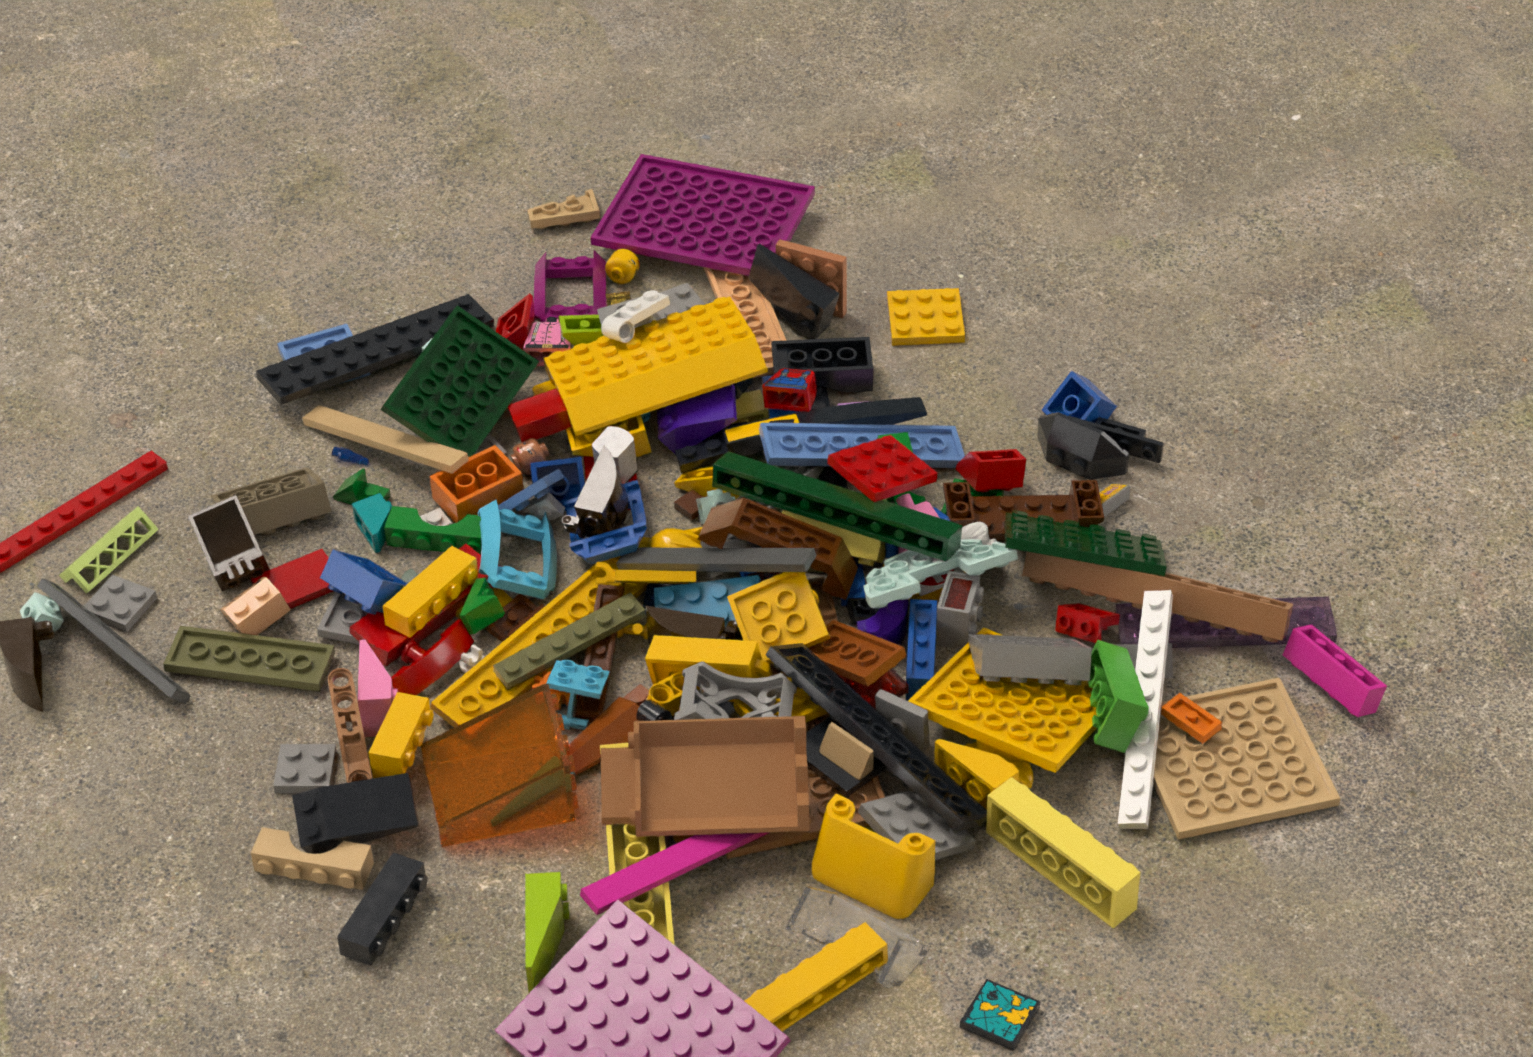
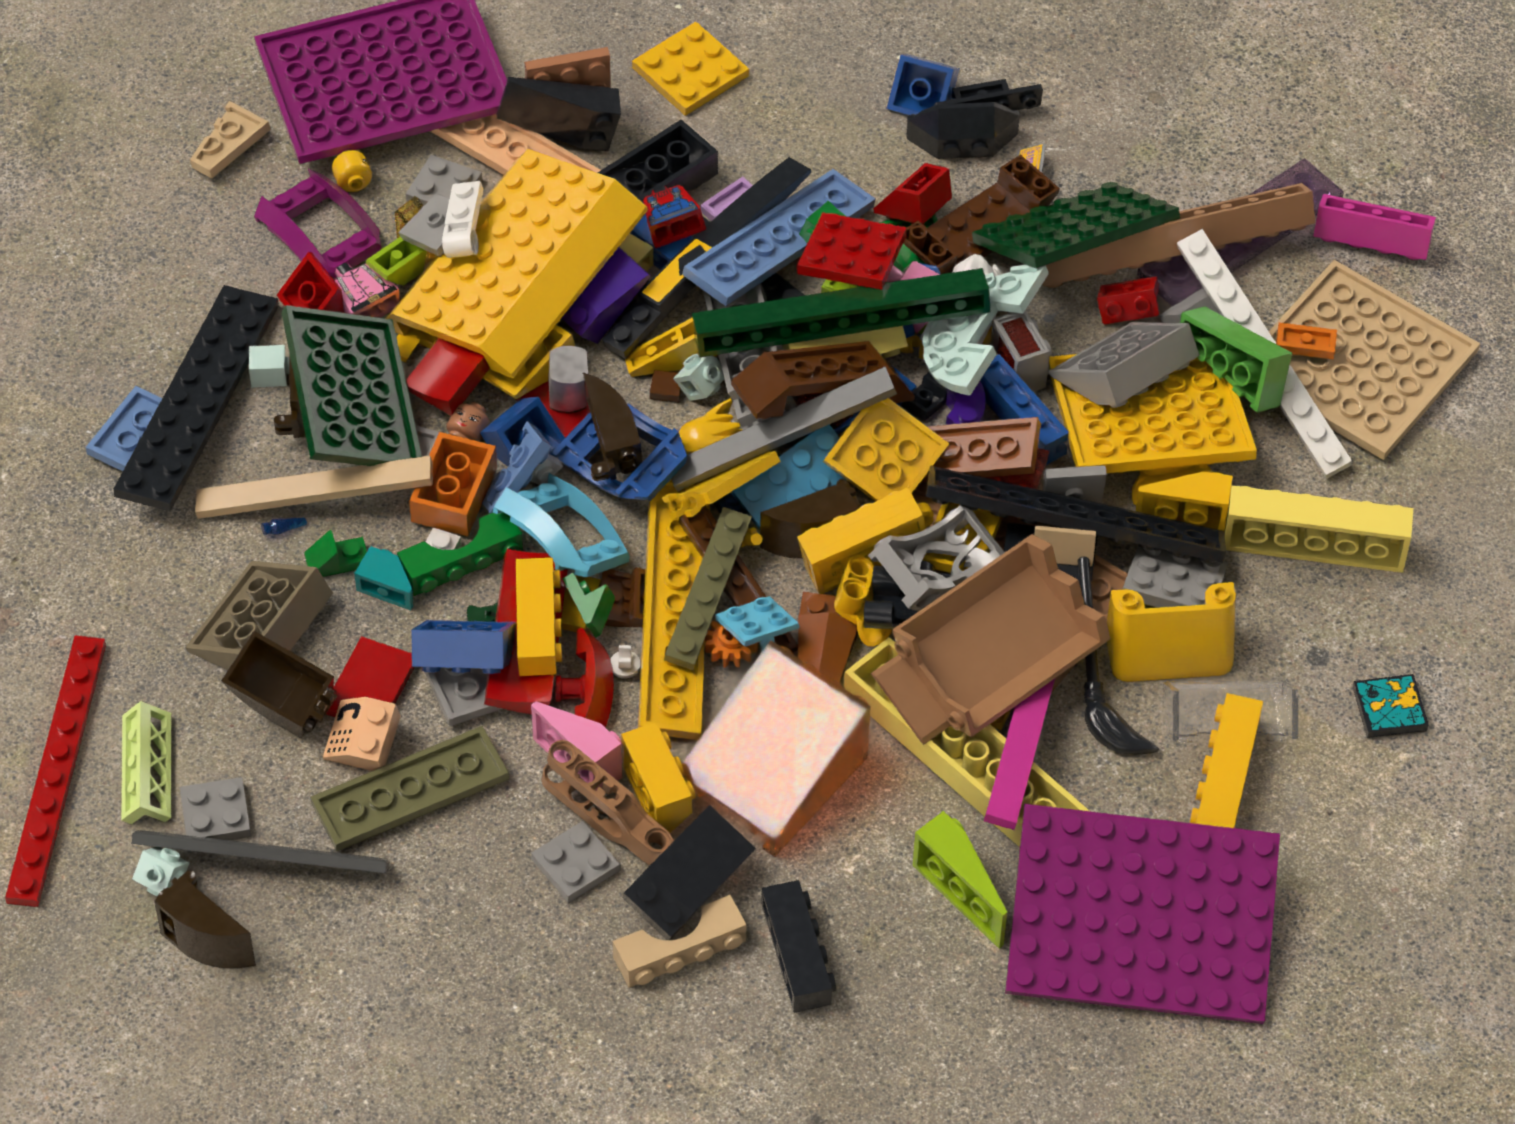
camera: 40 degrees left, 10 degrees up
(766, 893) = (1100, 717): none -> black piece

